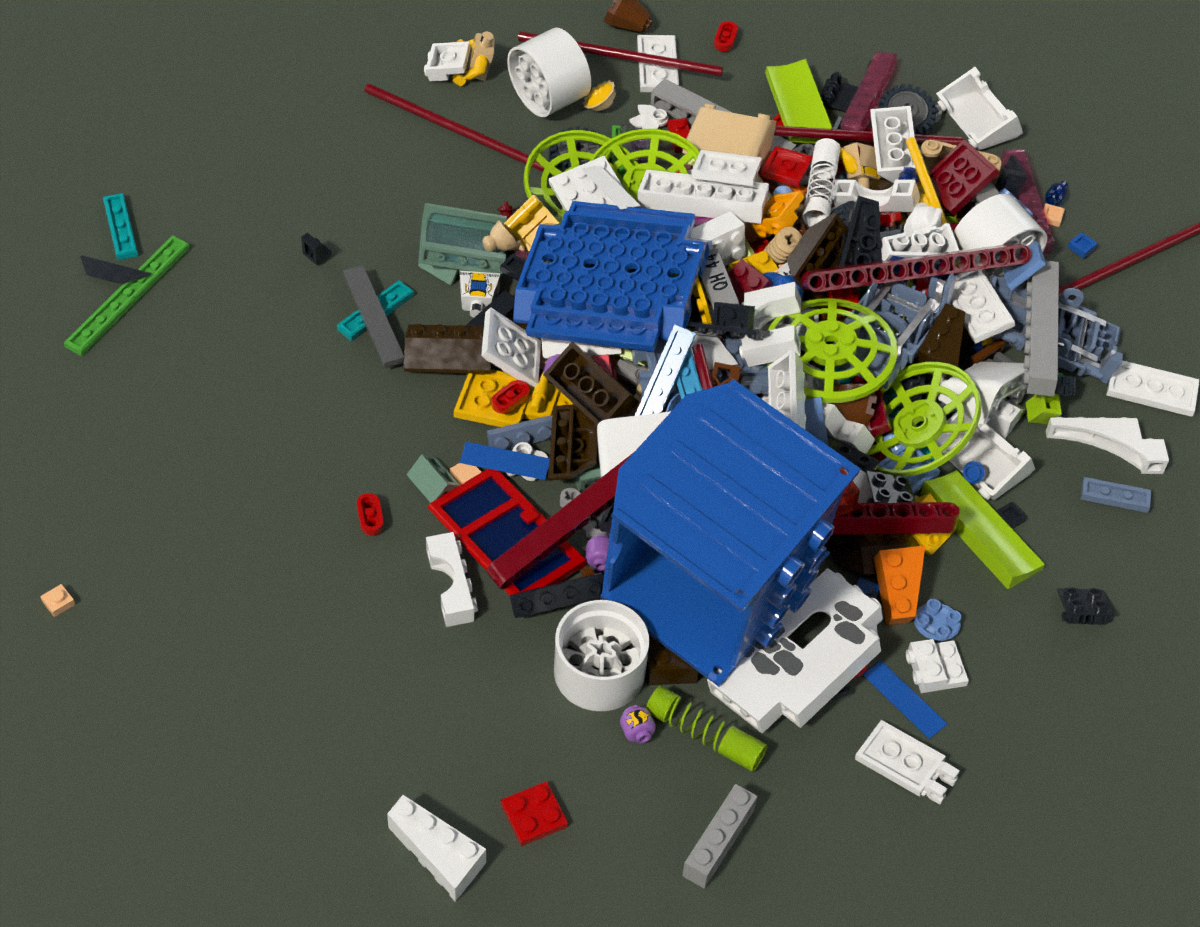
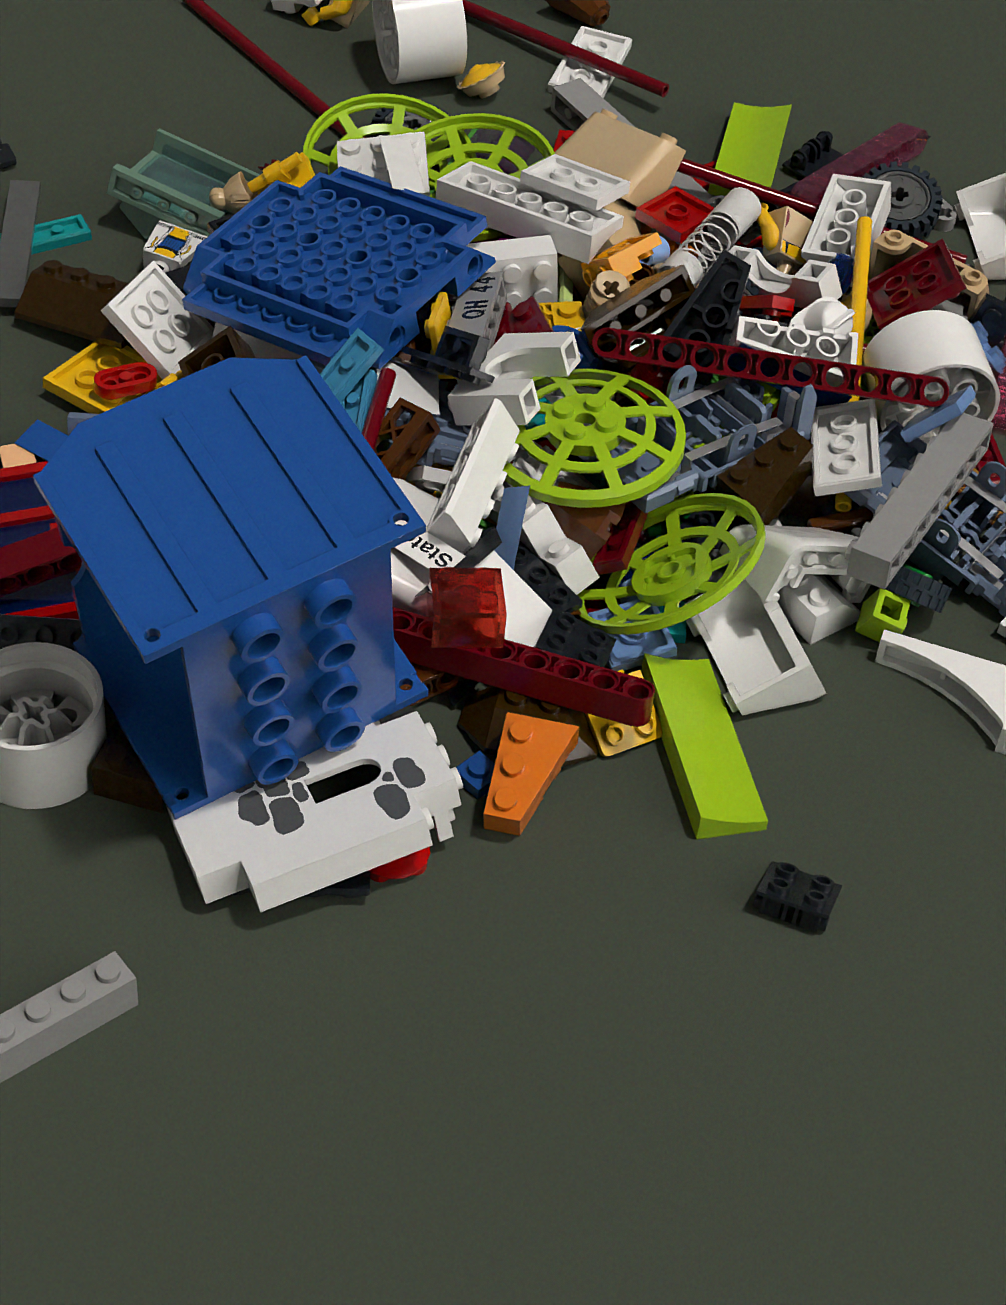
camera: 20 degrees right, 5 degrees down
(637, 724) = (36, 833): medium lavender head -> none
(649, 117) = (542, 120): white plate -> none
(725, 36) = (701, 56): red plate -> none
(735, 745) = (154, 901): lime piece -> none
(905, 699) = (451, 933): blue sticker -> none
(907, 762) = (397, 1015): white tile -> none
(936, 665) = (521, 901): white plate -> none
(937, 620) = (559, 843): medium blue dish -> none
(974, 472) = (729, 667): blue plate -> none
(1011, 515) = (757, 743): black tile -> none
(1115, 494) = (933, 763): sand blue plate -> none

